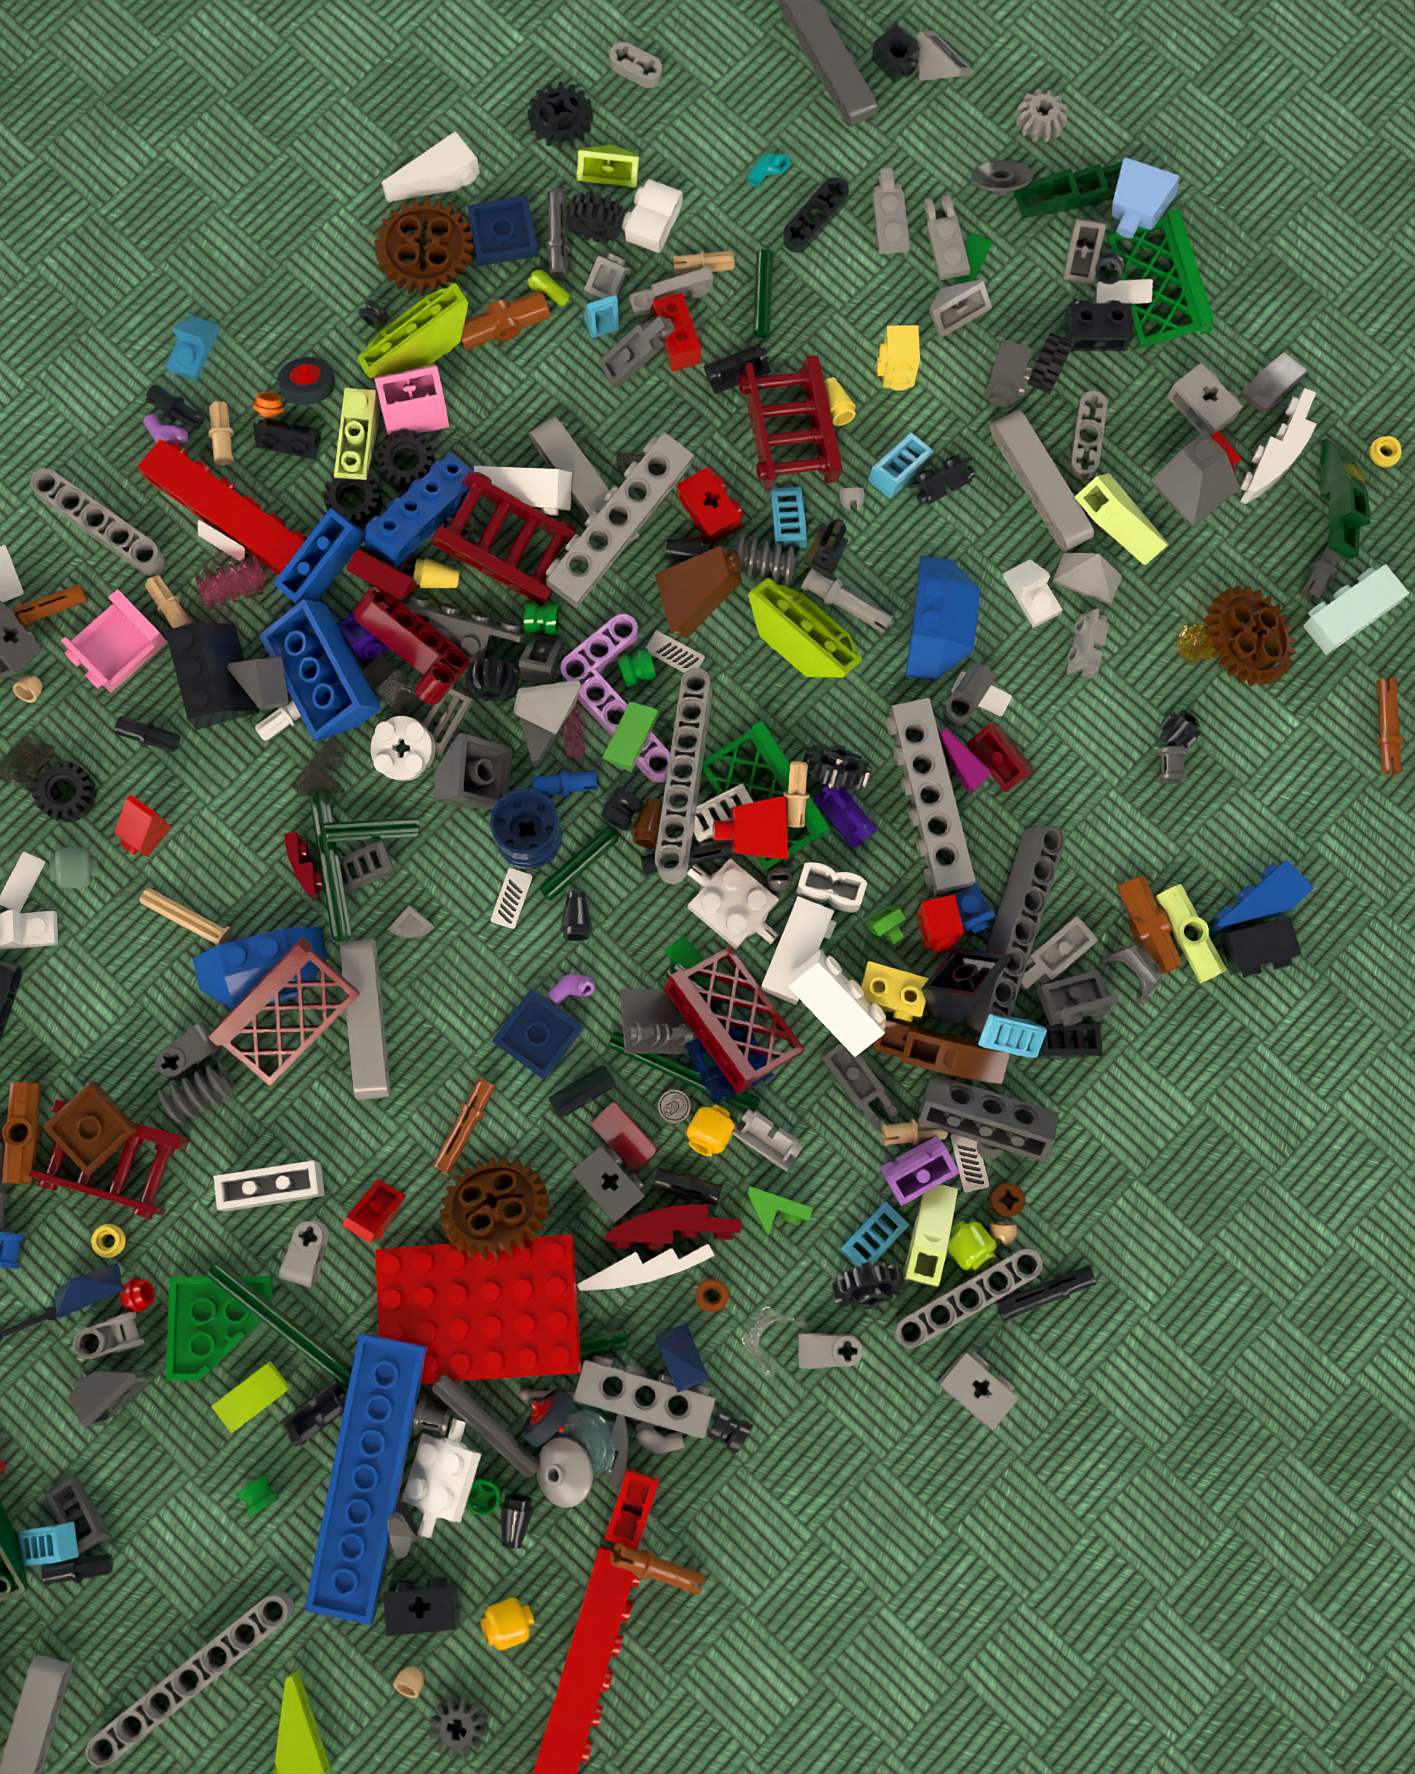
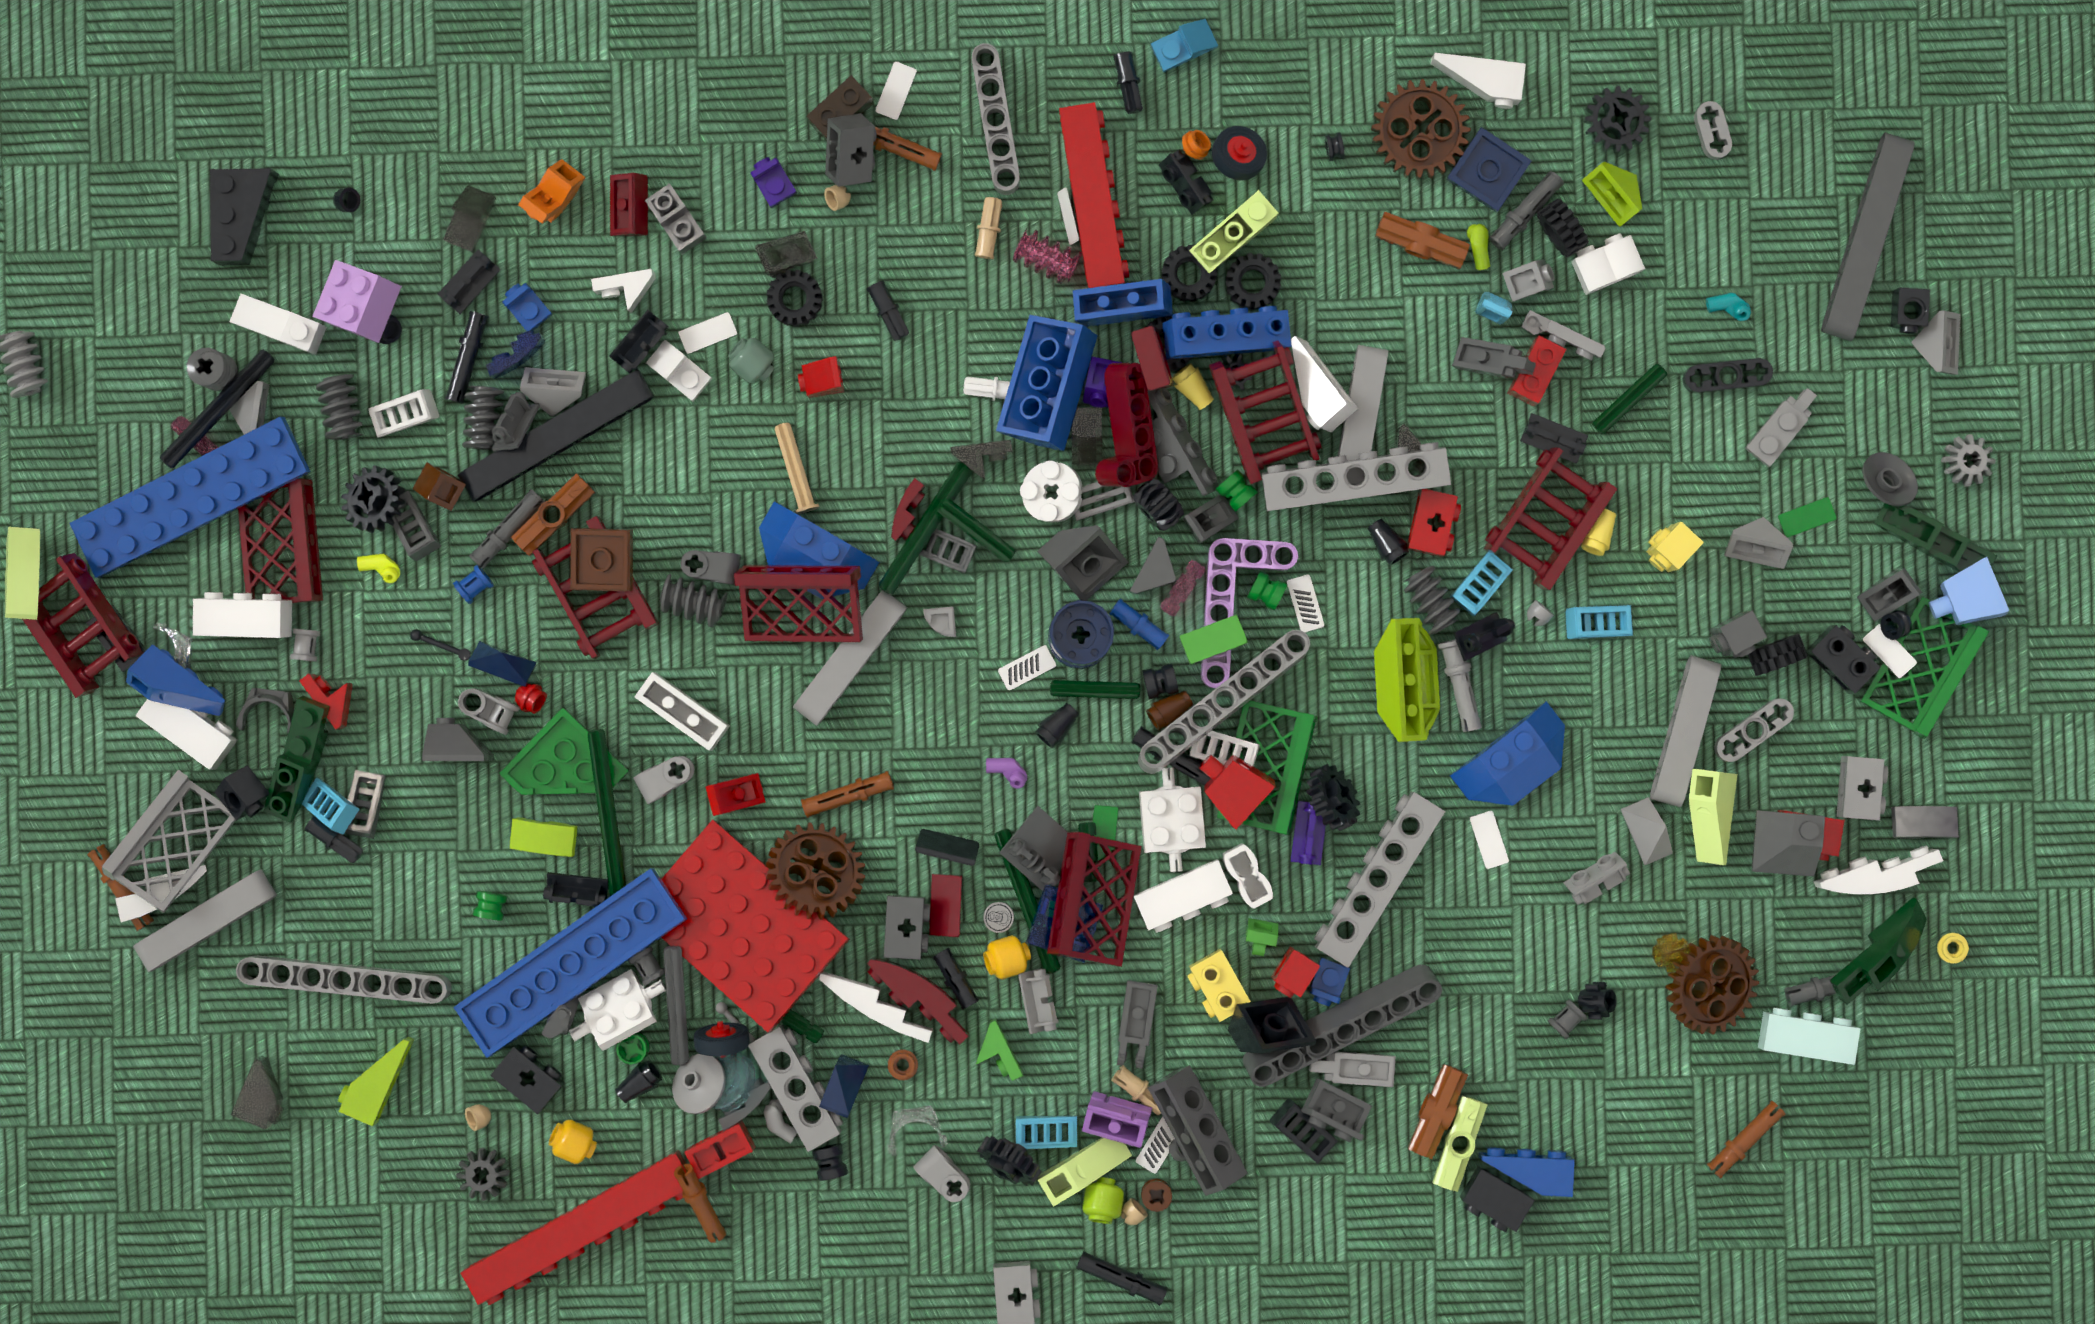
camera: 50 degrees right, 10 degrees up
(99, 1237) = (534, 642): light yellow plate -> none
(114, 644) = (925, 221): bright pink panel -> none
(168, 433) = (1102, 95): medium lavender arm -> none
(206, 685) = (972, 309): black slope -> none
(221, 433) = (1143, 132): tan axle -> none
(262, 681) = (1000, 351): dark grey slope -> none
(412, 401) = (1298, 242): bright pink slope -> none
(418, 335) = (1347, 195): lime wedge -> none
(538, 1034) = (954, 781): dark blue plate -> none
(547, 704) = (1176, 563): light grey slope -> none
(697, 588) = (1363, 577): reddish brown slope -> none
(715, 261) = (1609, 335): tan axle -> none
(779, 886) = (1225, 828): dark grey hinge -> none
(796, 794) = (1285, 792): tan axle -> none
(838, 1002) = (1172, 959): white brick -> none
(931, 482) = (1631, 663): black hinge -> none
(942, 1052) = (1209, 1058): reddish brown slope -> none
(946, 240) = (1801, 487): light grey hinge -> none
(965, 764) = (1424, 884): magenta slope -> none
(969, 694) = (1479, 832): dark grey piece -> none
(984, 1296) = (1078, 1242): light grey beam -> none
(1000, 756) = (1457, 896): dark red slope -> none
(1015, 1036) = (1270, 1097): medium azure slope -> none
(1033, 594) = (1597, 803): white slope -> none
(1142, 964) = (1403, 1131): dark grey helmet -> none

